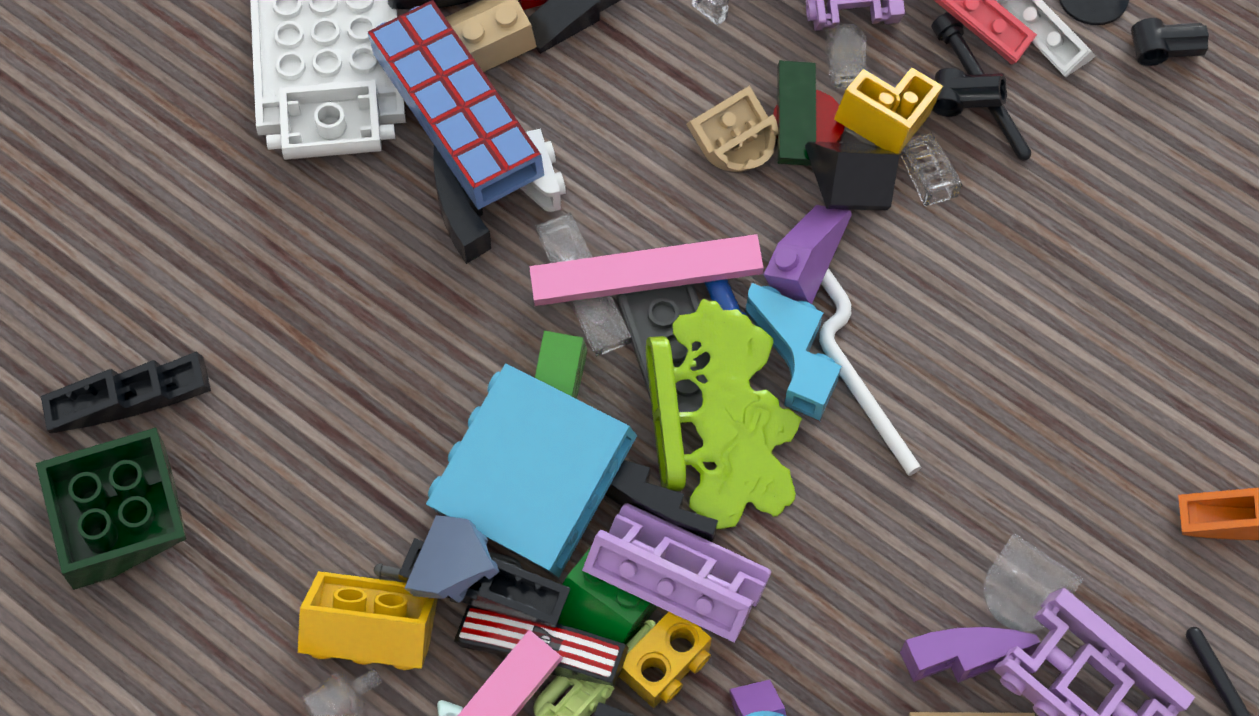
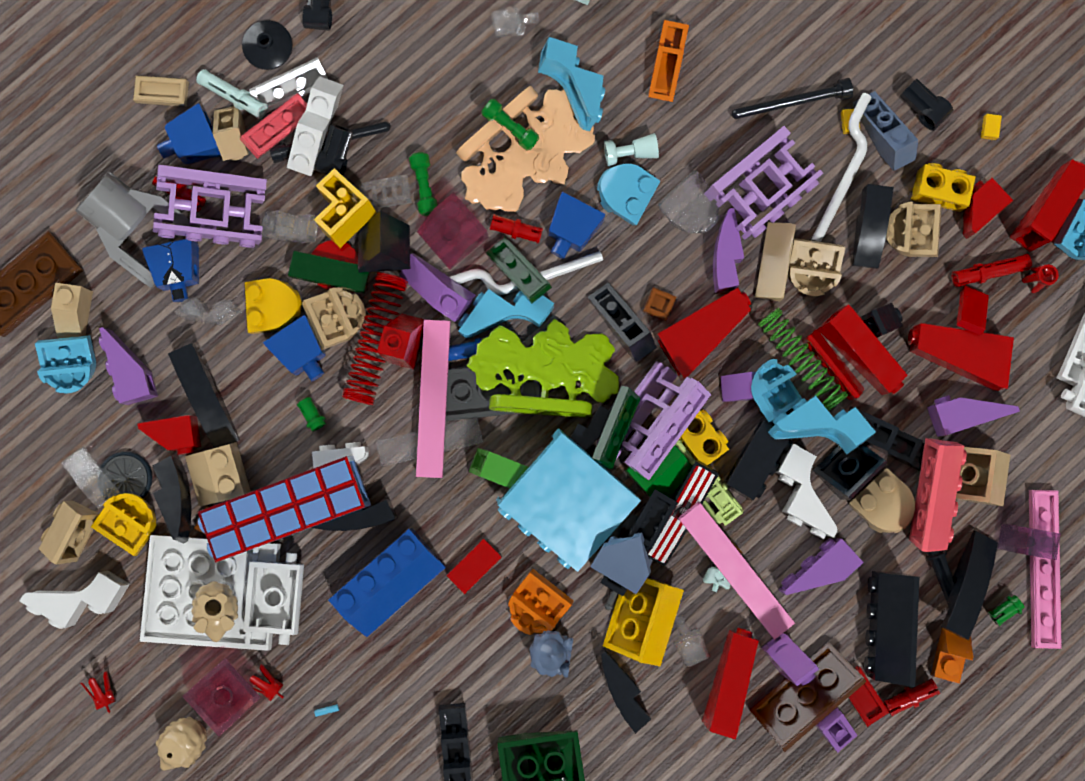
camera: 80 degrees left, 20 degrees up
(118, 46) = (181, 743): none -> tan animal
(180, 217) = (326, 710): none -> medium azure piece
(183, 77) = (221, 697): none -> clear pink slope
(201, 139) = (268, 690): none -> red piece
(252, 605) = (624, 692): none -> black slope
(297, 488) = (551, 653): none -> sand blue animal
(303, 43) = (214, 610): none -> tan animal
(368, 464) = (537, 604): none -> orange slope
(372, 258) = (387, 583): none -> blue slope
(412, 371) = (474, 566): none -> red tile
(591, 128) = (311, 414): none -> green pin
(654, 514) = (616, 427): none -> dark green tile
(680, 93) = (298, 348): none -> blue torso
(719, 198) = (402, 340): none -> red slope
(732, 54) = (270, 305): none -> yellow slope
(801, 195) = (384, 280): none -> red piece
(817, 514) = (623, 322): none -> black slope
(833, 635) = (700, 333): none -> red slope
(861, 350) = (518, 270): none -> tile
(861, 568) = (659, 304): none -> dark orange tile
(897, 260) = (452, 231): none -> clear pink slope
(923, 344) = (516, 228): none -> red pin
(949, 419) = (573, 225): none -> blue torso
(982, 202) = (420, 163): none -> green piece
(986, 50) = (314, 125): none -> white arch
(1023, 488) = (626, 191): none -> medium azure slope
(1044, 351) = (544, 162): none -> light nougat plant
(1085, 271) = (526, 137): none -> green piece
(1095, 497) = (641, 148): none -> light aqua piece
(1163, 396) = (581, 86): none -> medium azure arch
(1229, 288) = (511, 21): none -> clear piece

